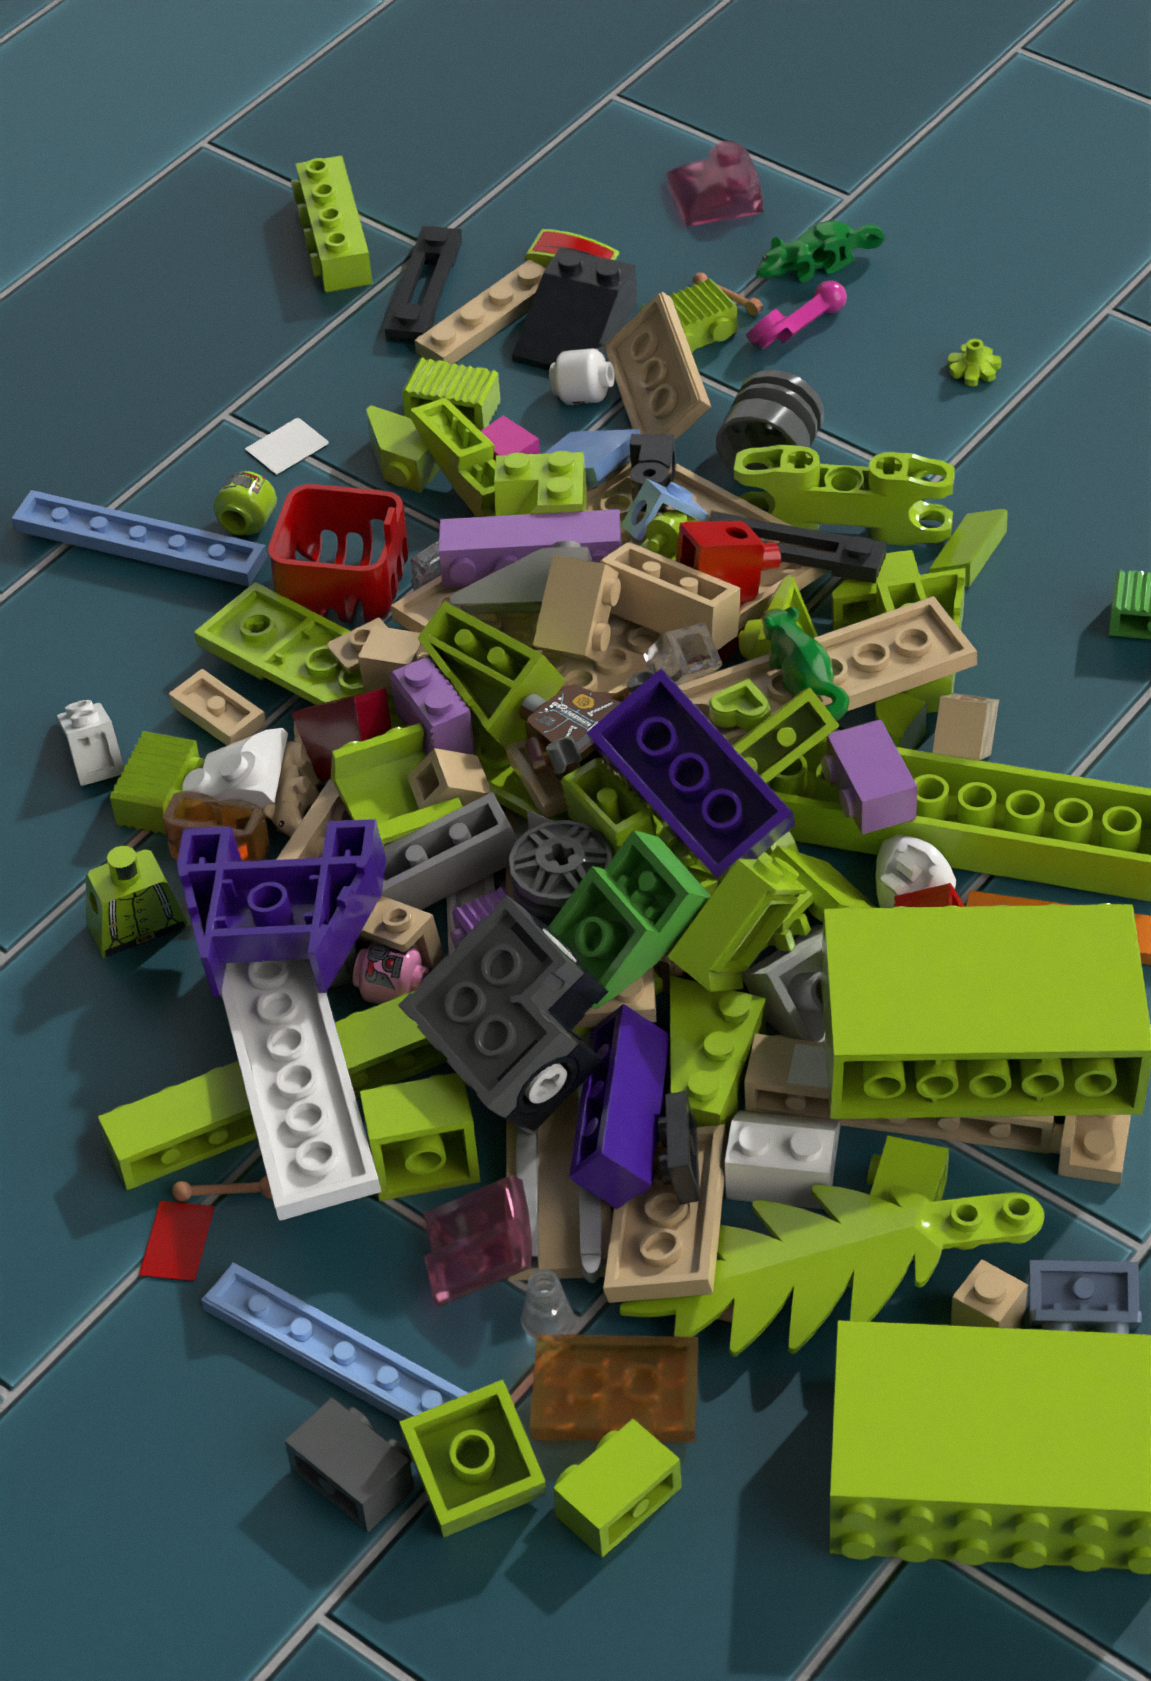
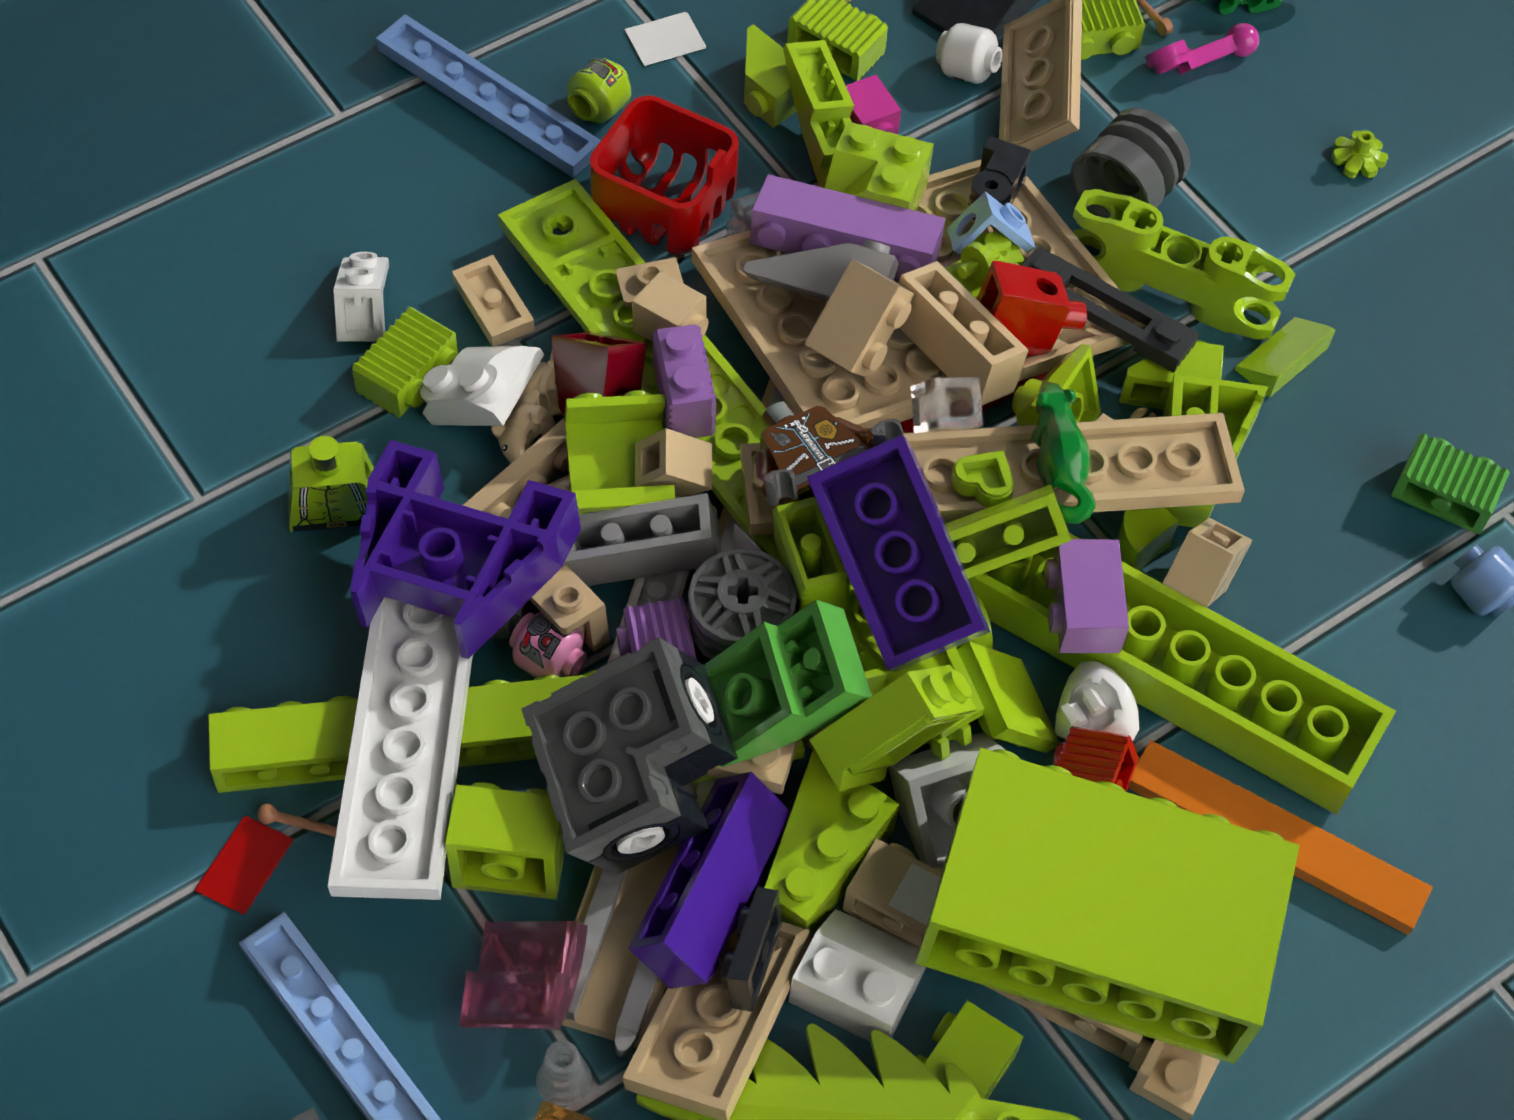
camera: 10 degrees right, 10 degrees up
(203, 811) = (455, 437): clear orange brick -> none
(489, 670) = (749, 360): lime wedge -> none
(601, 450) = (954, 139): medium blue tile -> none

